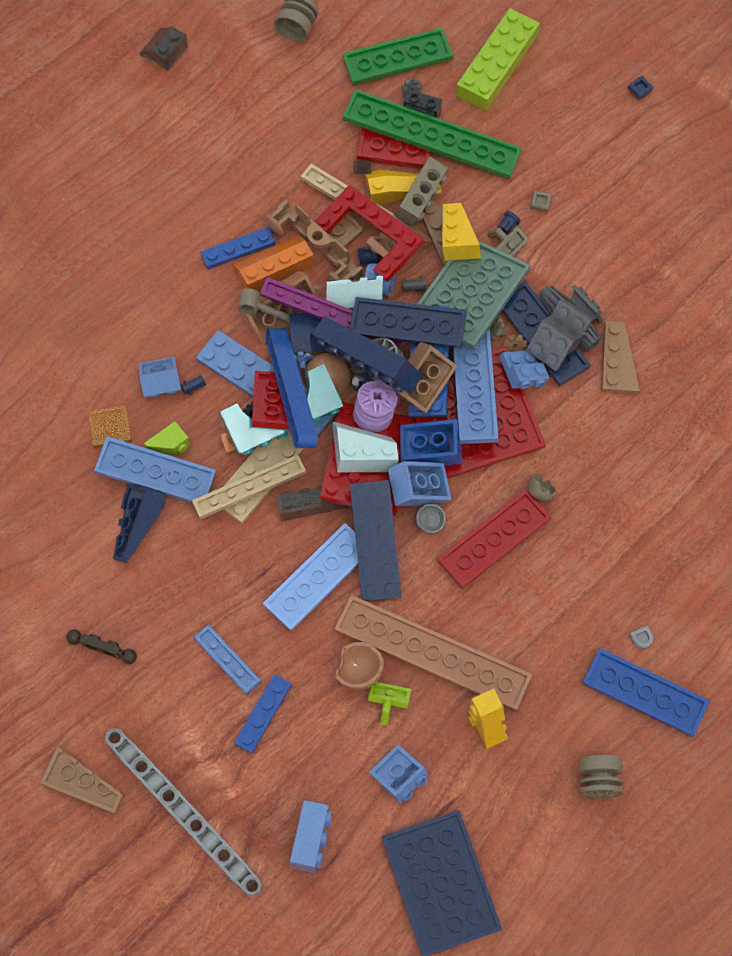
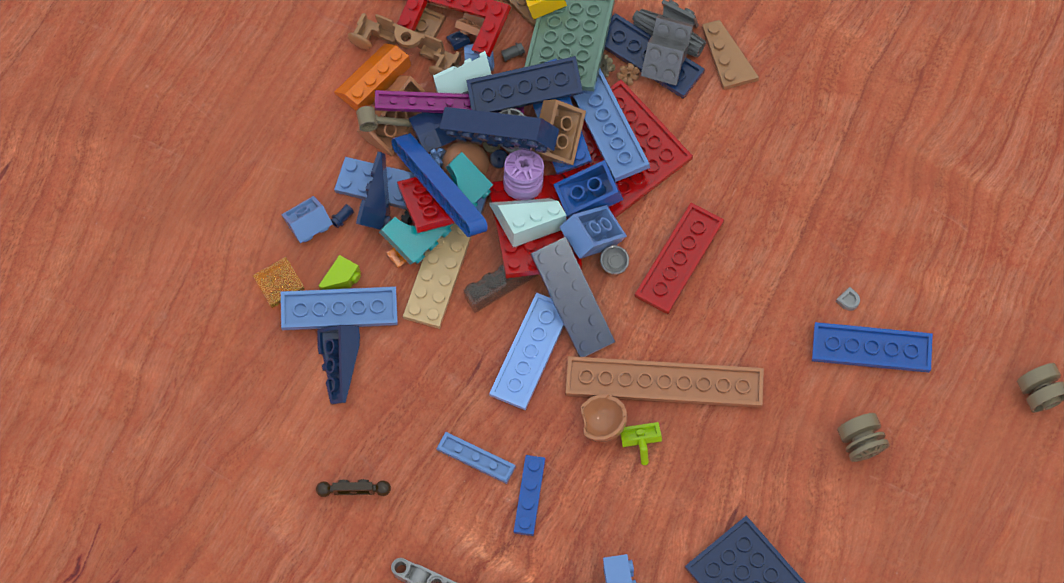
camera: 15 degrees left, 0 degrees up
(226, 388) = (375, 209): none -> dark blue wedge
(238, 248) = (333, 74): blue plate -> none
(249, 486) = (434, 291): tan plate -> none
(399, 774) = (678, 503): medium blue plate -> none
(487, 716) = (739, 421): yellow wedge -> none
(524, 370) = (645, 94): medium blue plate -> none
(541, 490) = (704, 198): dark tan hair -> none

